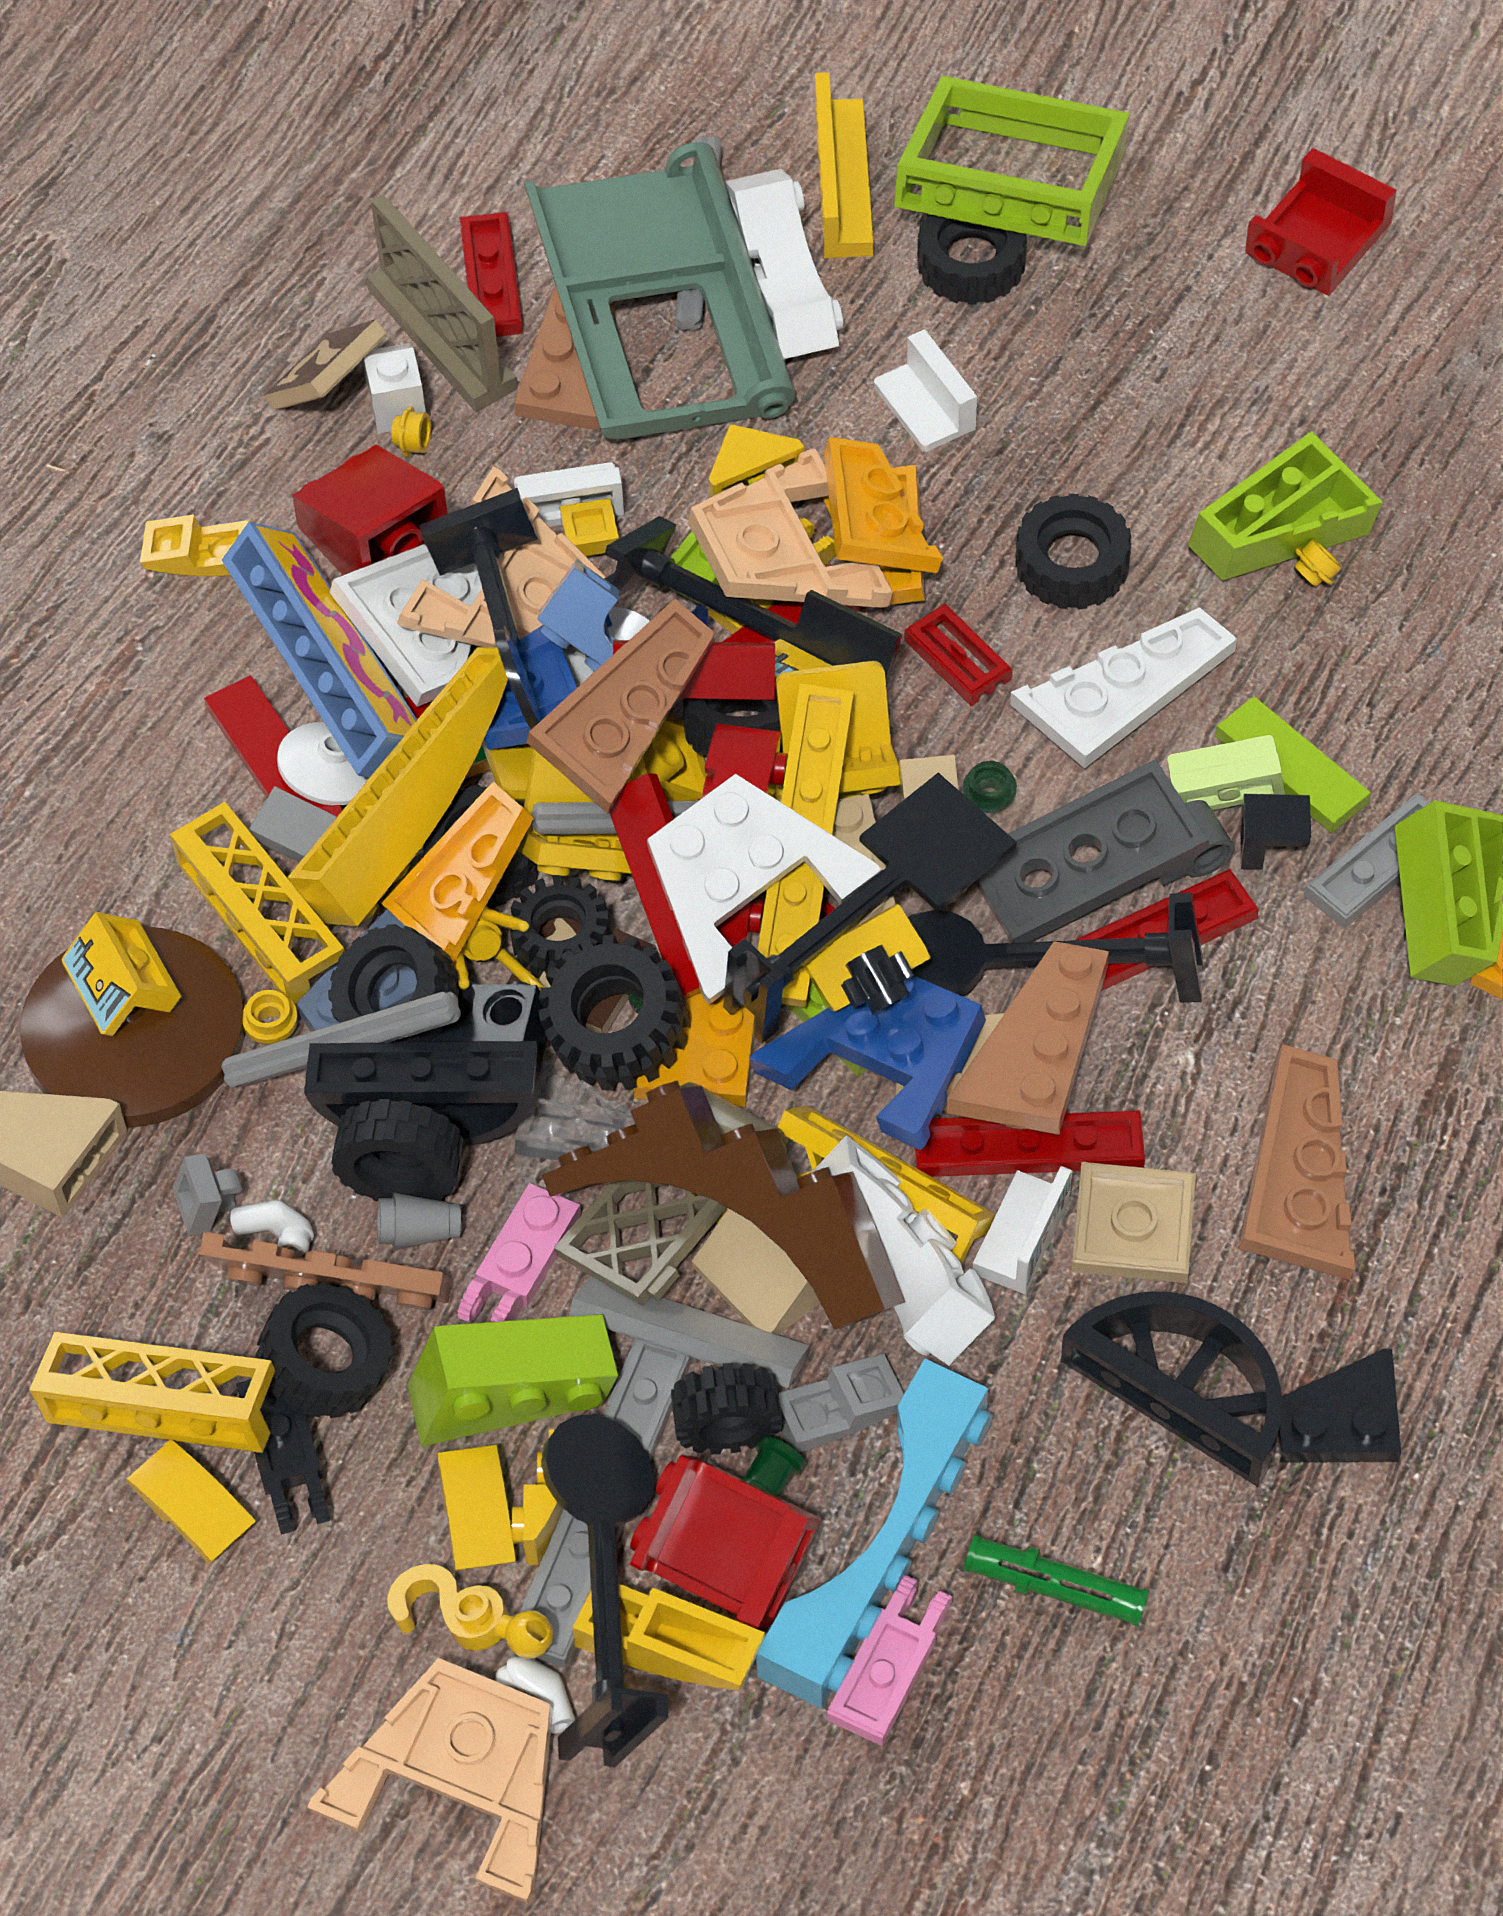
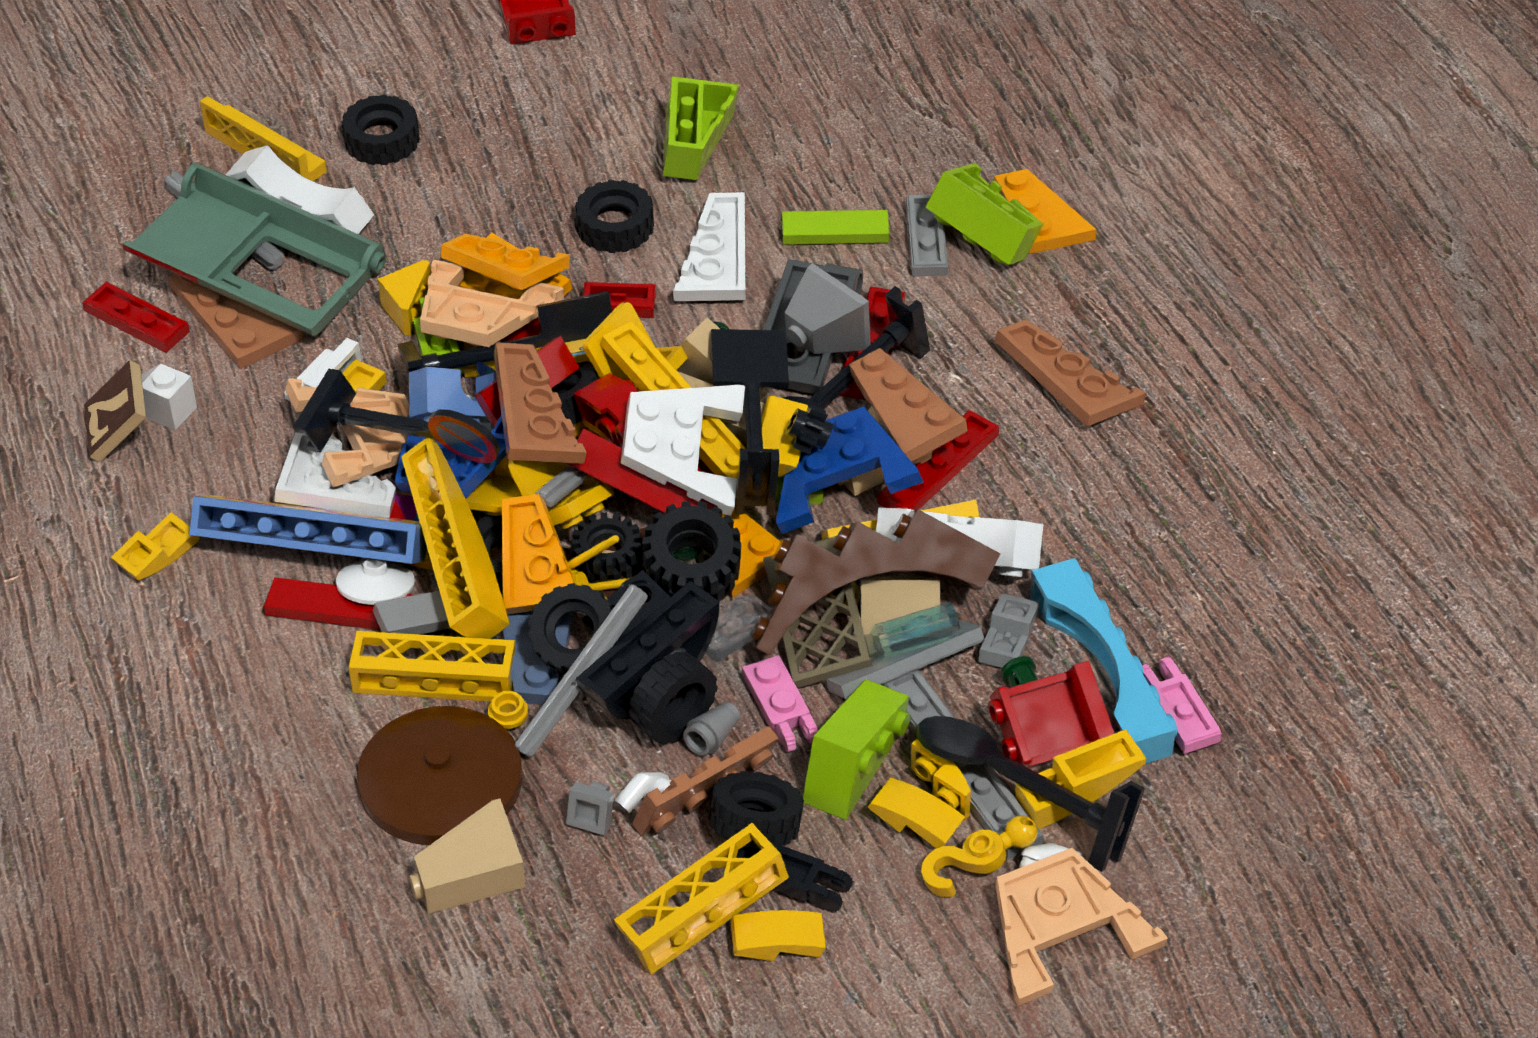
camera: 50 degrees left, 10 degrees down
(117, 970) = (414, 746): yellow panel -> none
(368, 509) = (241, 452): red slope -> none
(411, 431) = (200, 411): yellow plate -> none
(437, 310) = (107, 355): dark tan fence -> none
(726, 1308) = (918, 629): none -> clear light blue slope
(726, 1408) = (975, 666): black tyre -> none
(928, 395) = (448, 202): white panel -> none
(986, 1558) = (1198, 613): green pin -> none
(1003, 199) = (365, 93): lime window -> none
(1023, 1229) = (991, 487): white panel -> none
(1082, 861) = (827, 315): none -> light grey slope
(1134, 1222) = (1027, 456): tan tile -> none
(1170, 1402) = (1189, 492): black window -> none
(1227, 772) = (821, 242): yellowish green panel -> none
(1272, 822) = (866, 251): black panel -> none
(1317, 563) = (734, 138): yellow plate -> none
(1343, 1416) = (1218, 453): black wing -> none

